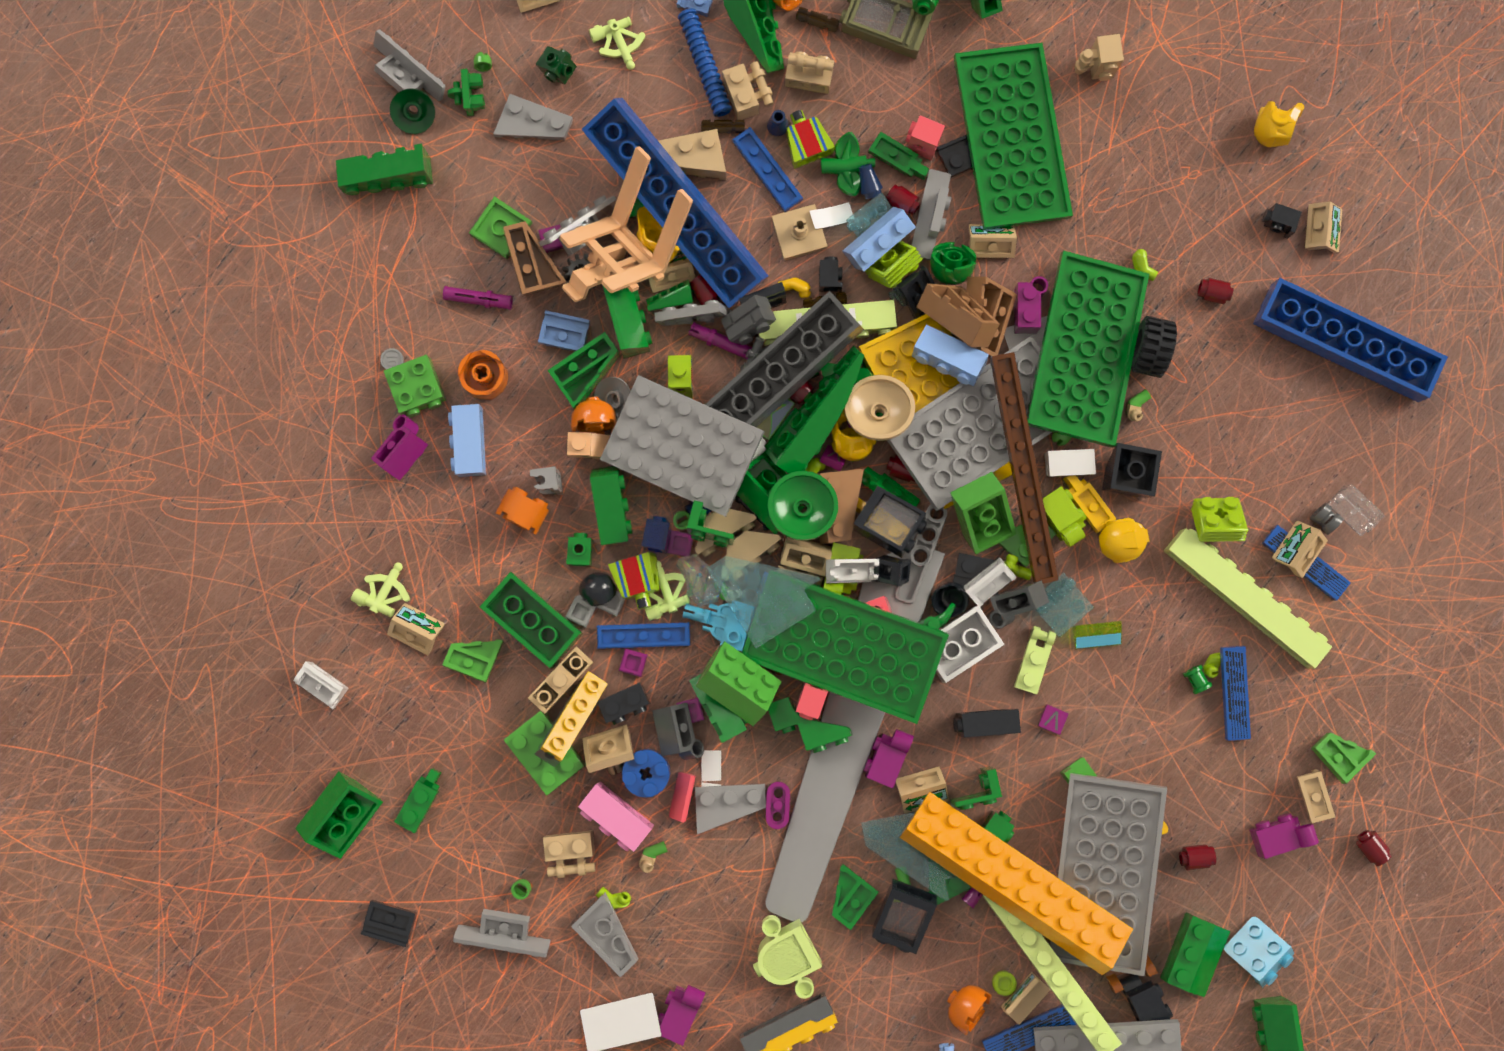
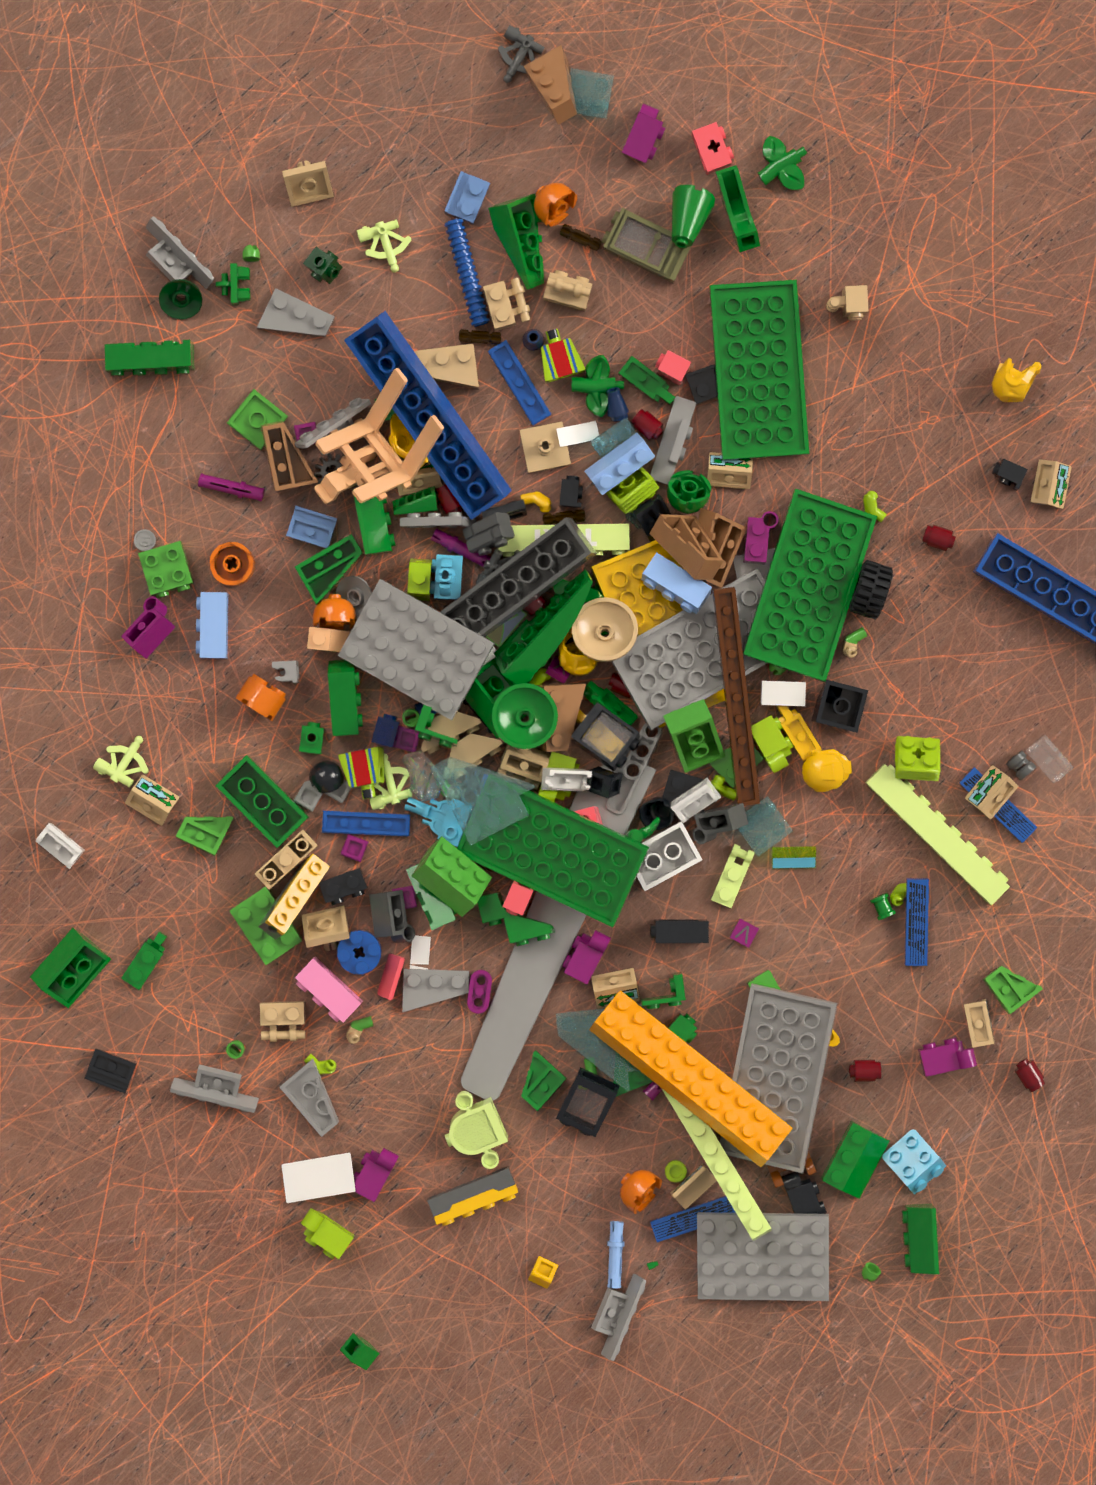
camera: 10 degrees right, 5 degrees up
(709, 370) = (447, 577): none -> medium azure brick

